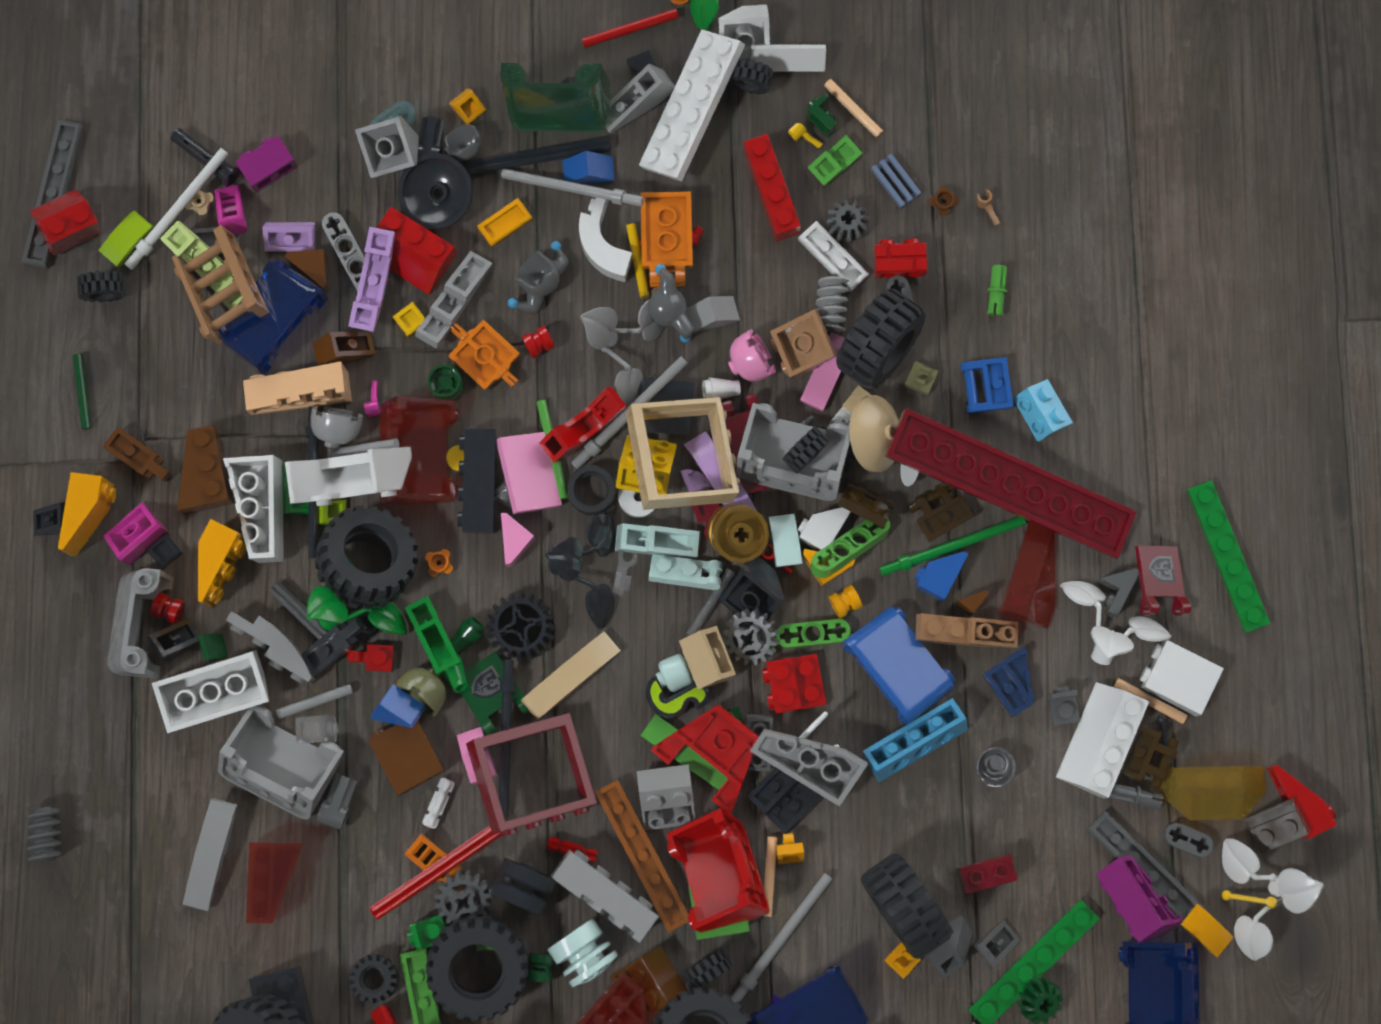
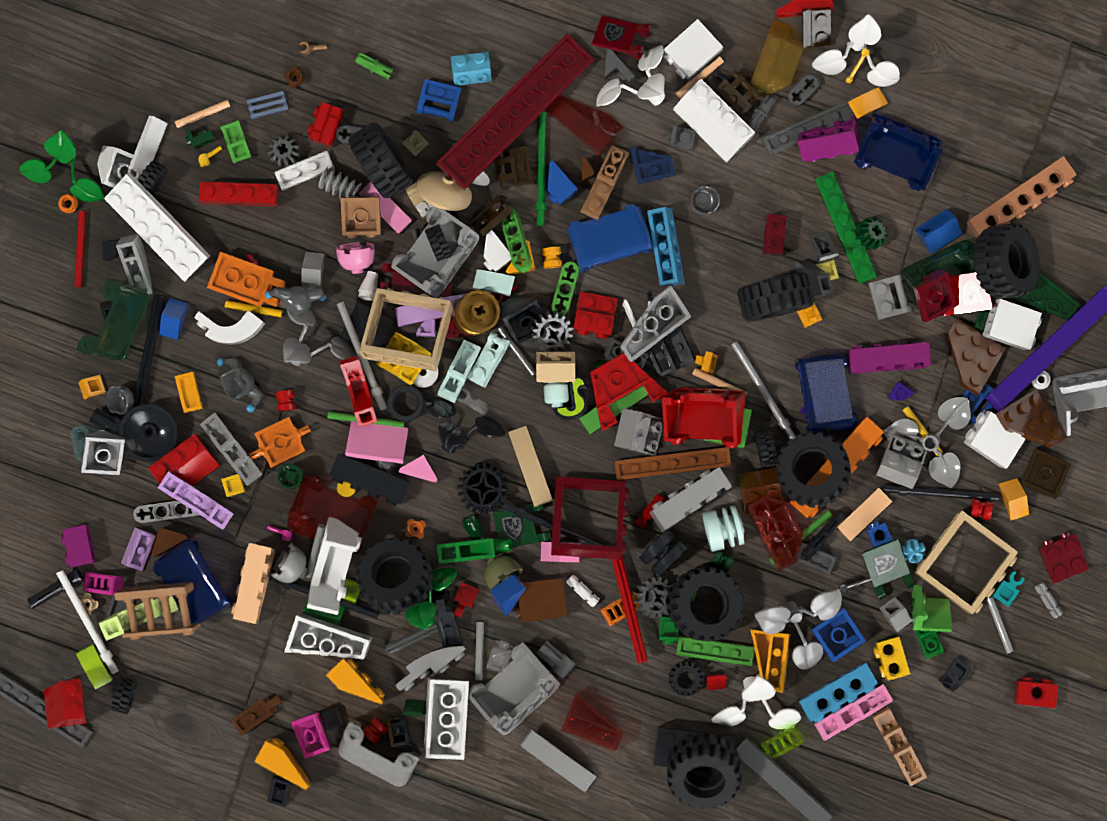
camera: 65 degrees left, 5 degrees up
(82, 394) = (194, 737): dark green bar -> none
(204, 474) = (287, 669): reddish brown wedge -> none
(343, 347) = (236, 539): reddish brown slope -> none
(617, 196) = (204, 304): light grey bar -> none
(973, 963) = (830, 268): none -> light yellow tile

